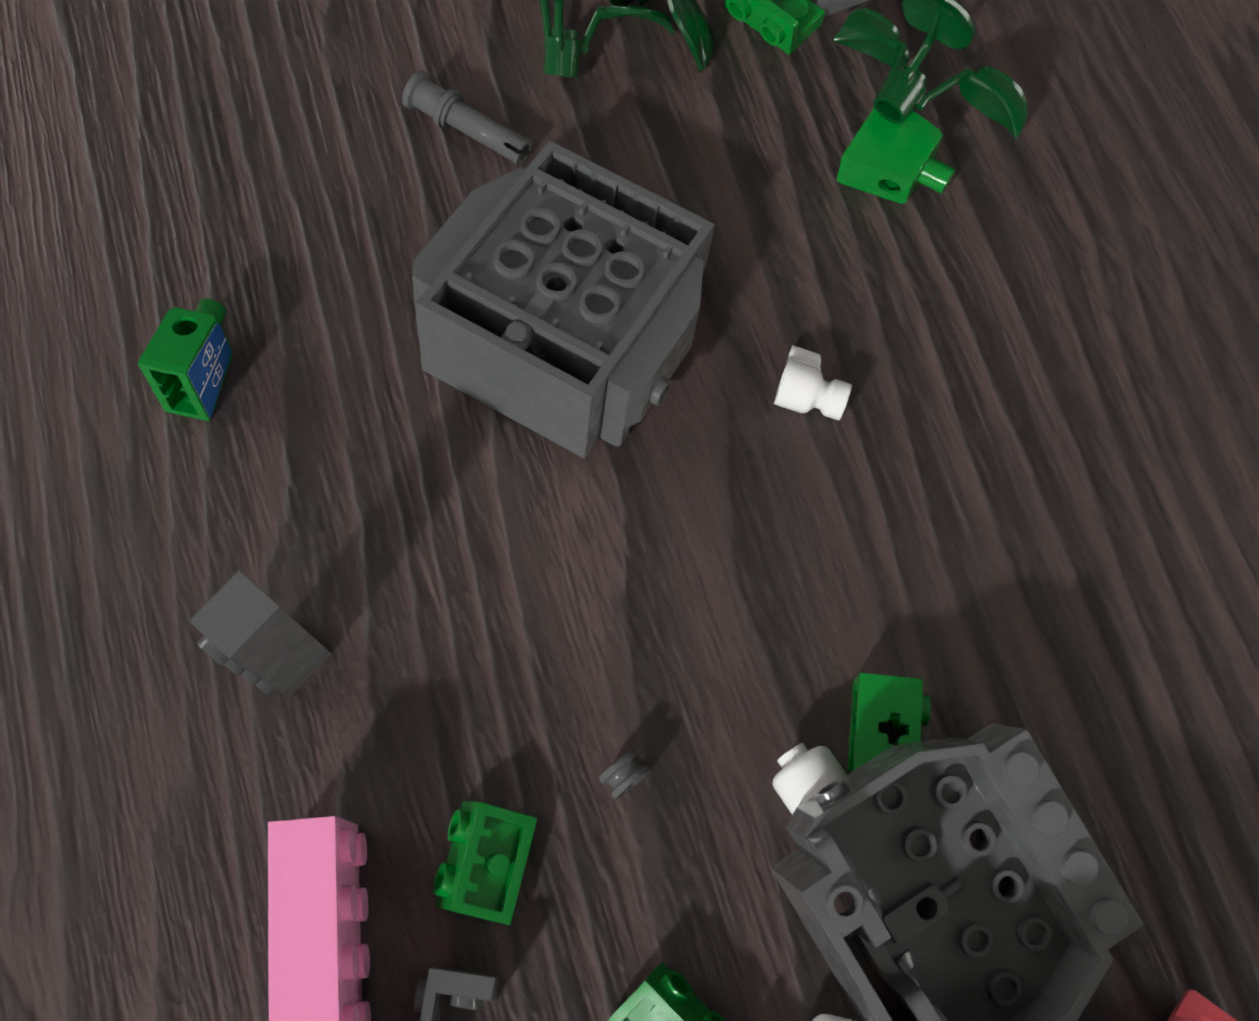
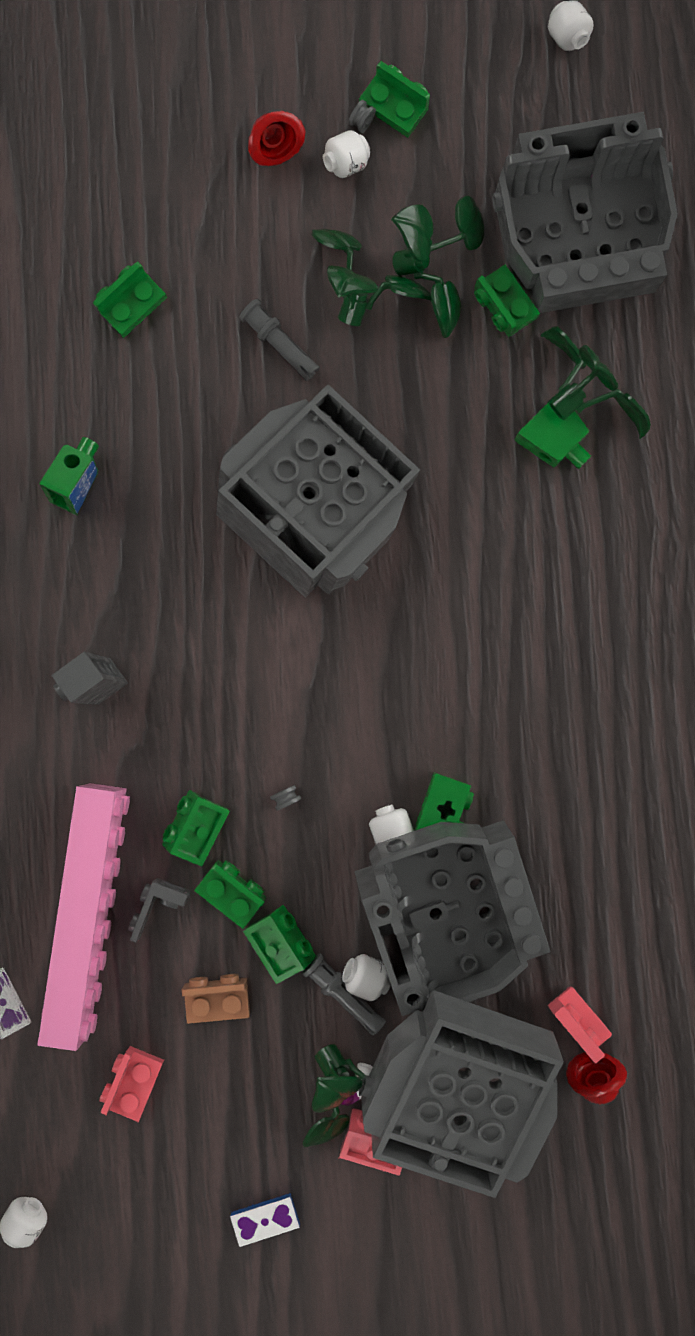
camera: 10 degrees right, 15 degrees up
(238, 112) = (129, 299): none -> green bracket
(568, 962) = (231, 893): none -> green bracket
(805, 389) = (452, 582): white piece -> none

